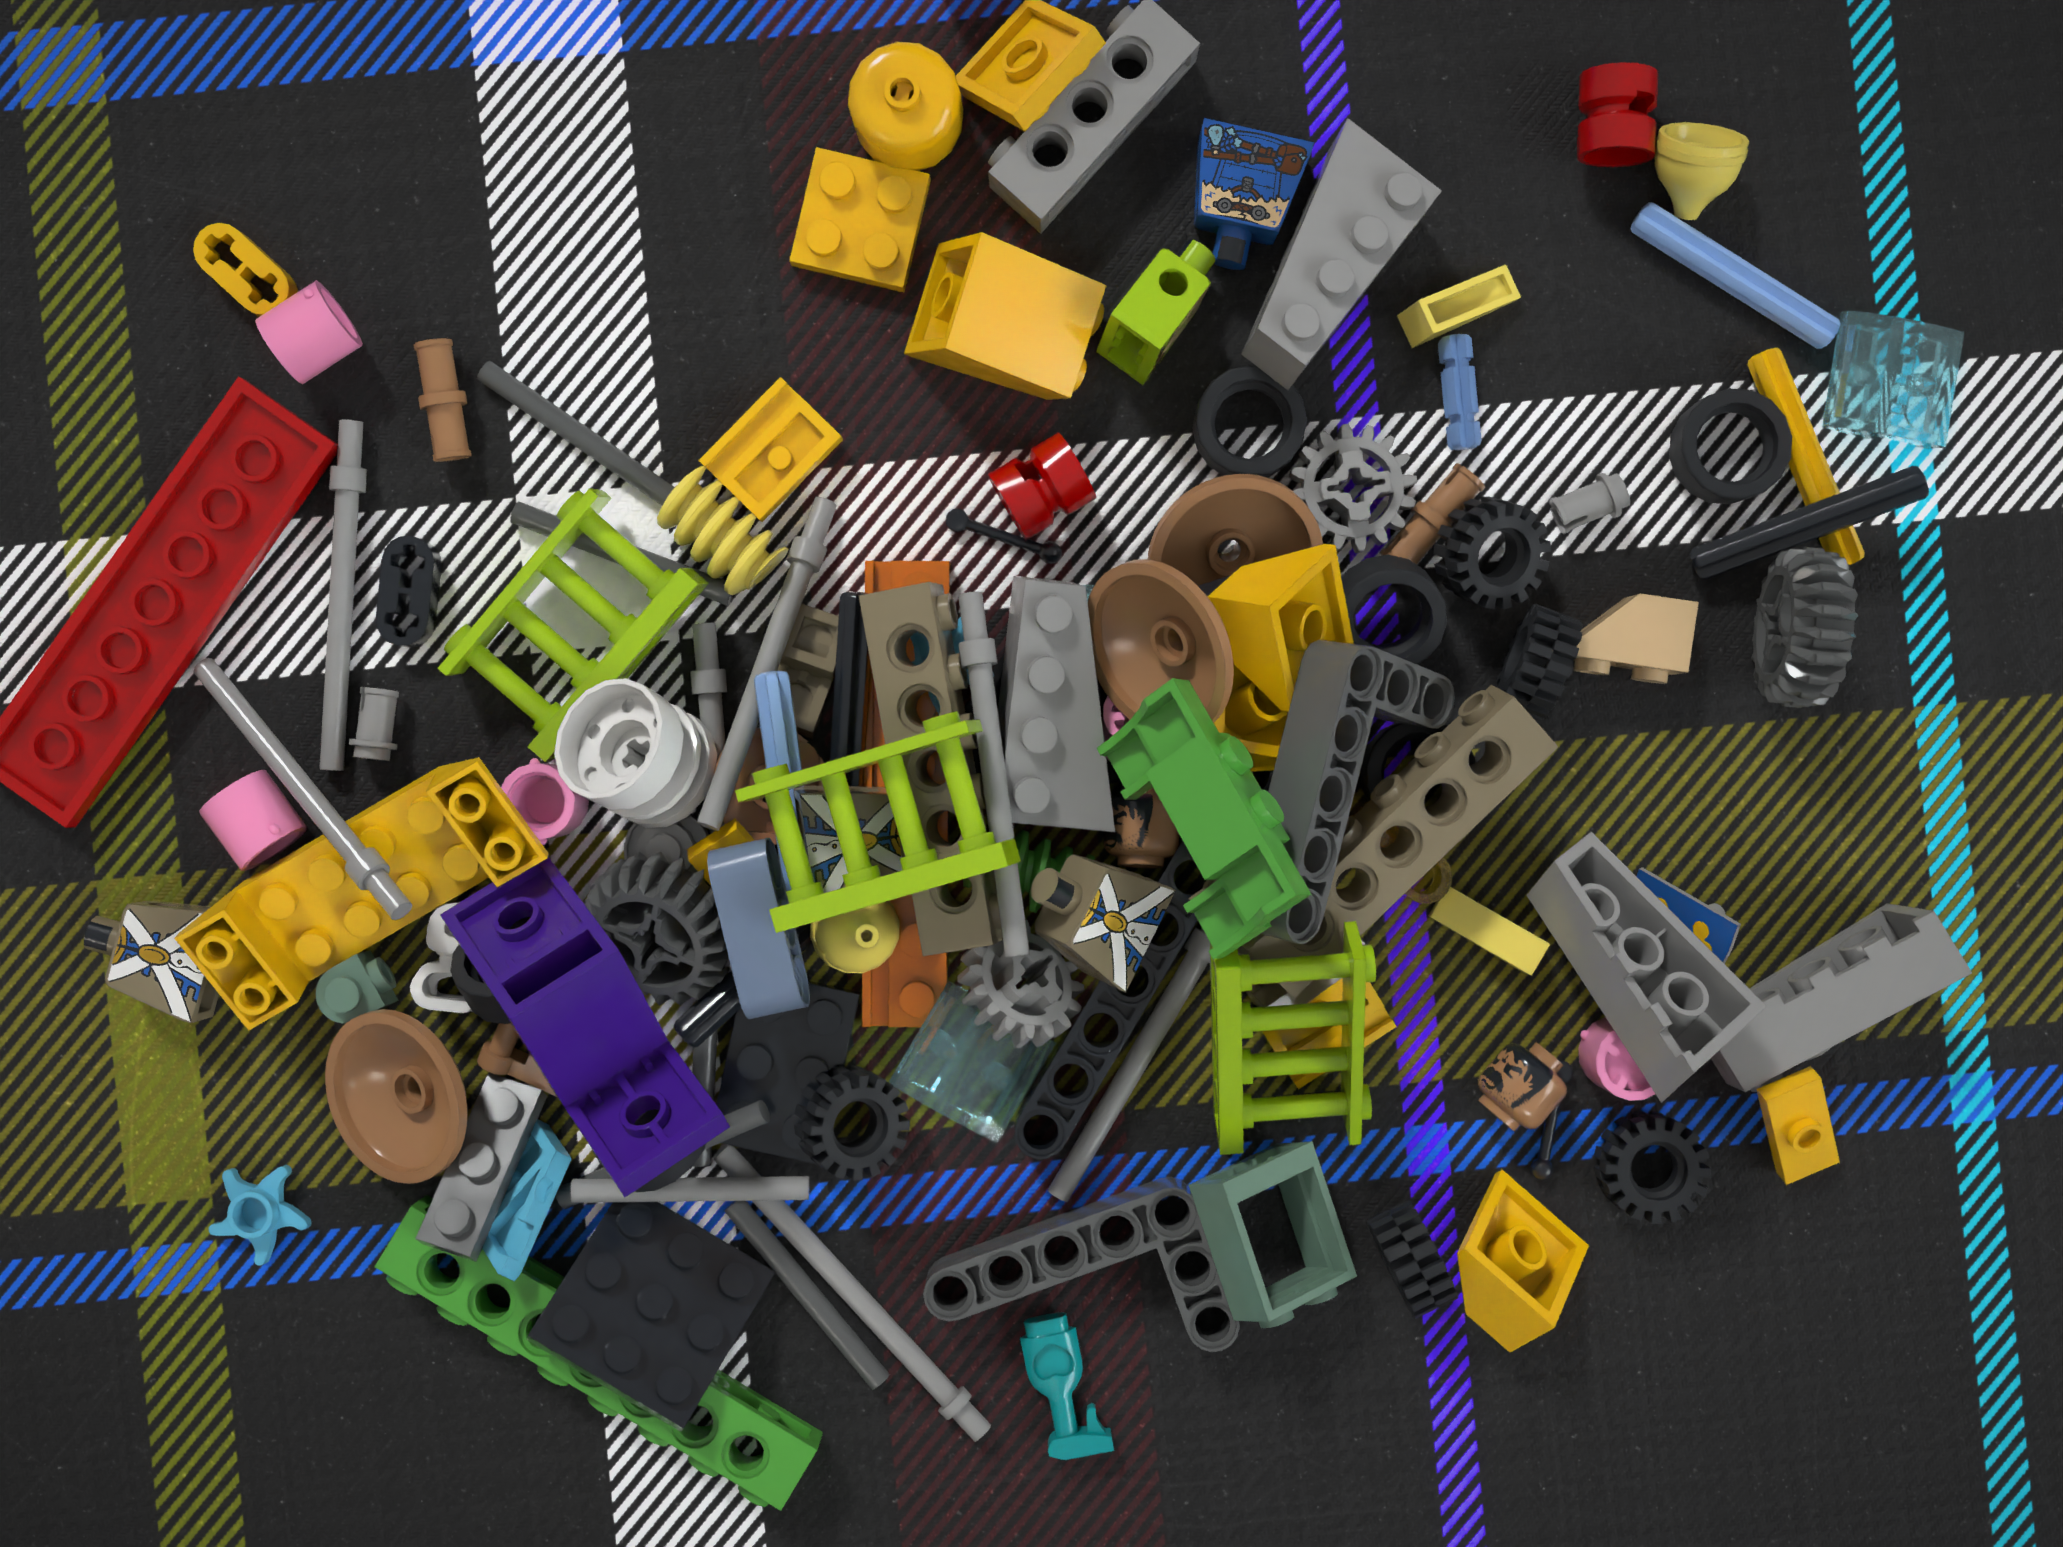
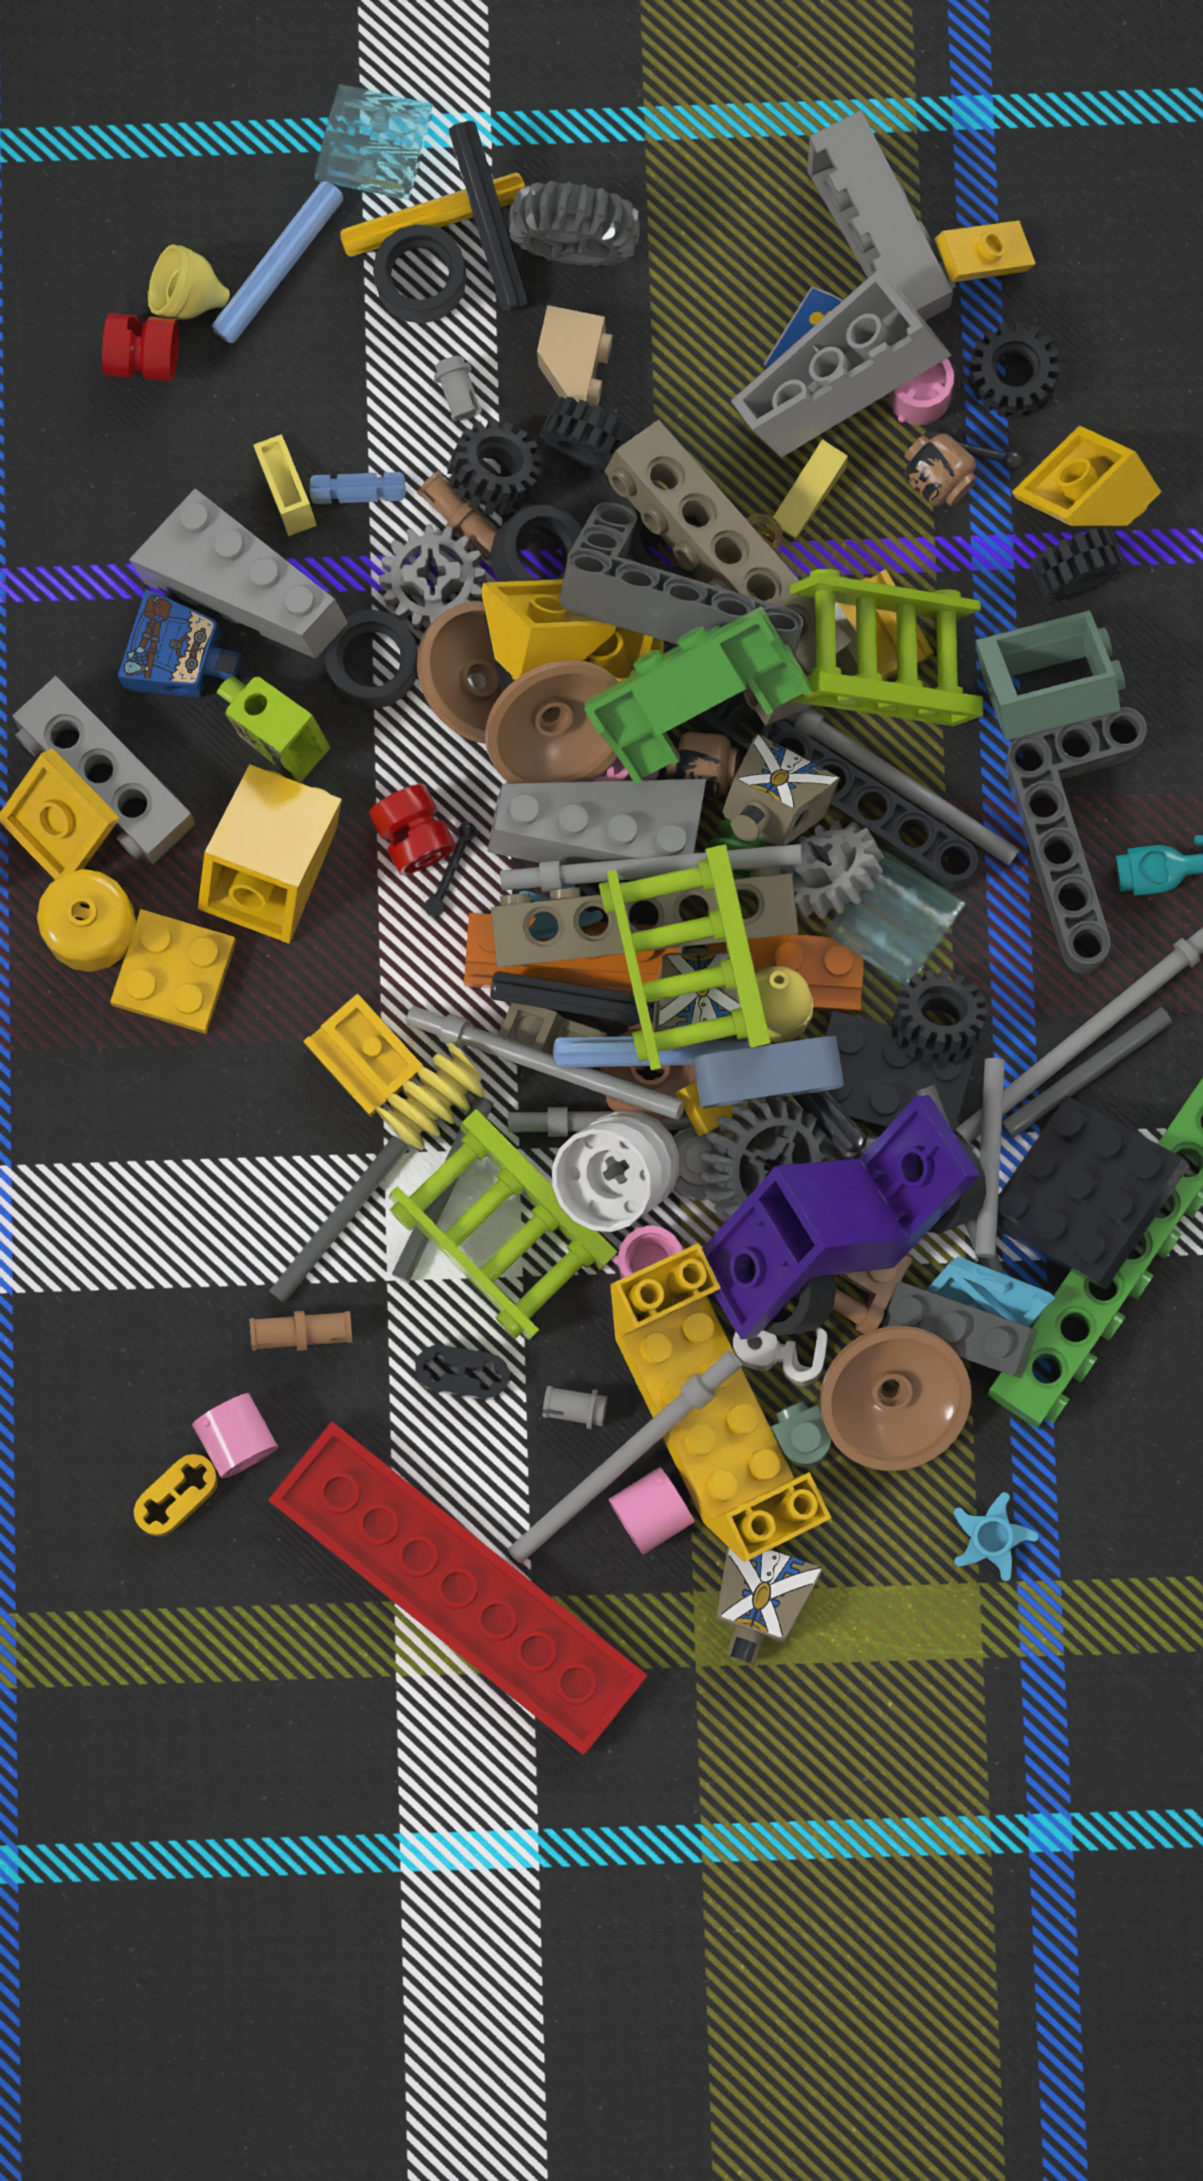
camera: 75 degrees left, 10 degrees down
(347, 481) = (363, 1419): light grey bar -> none

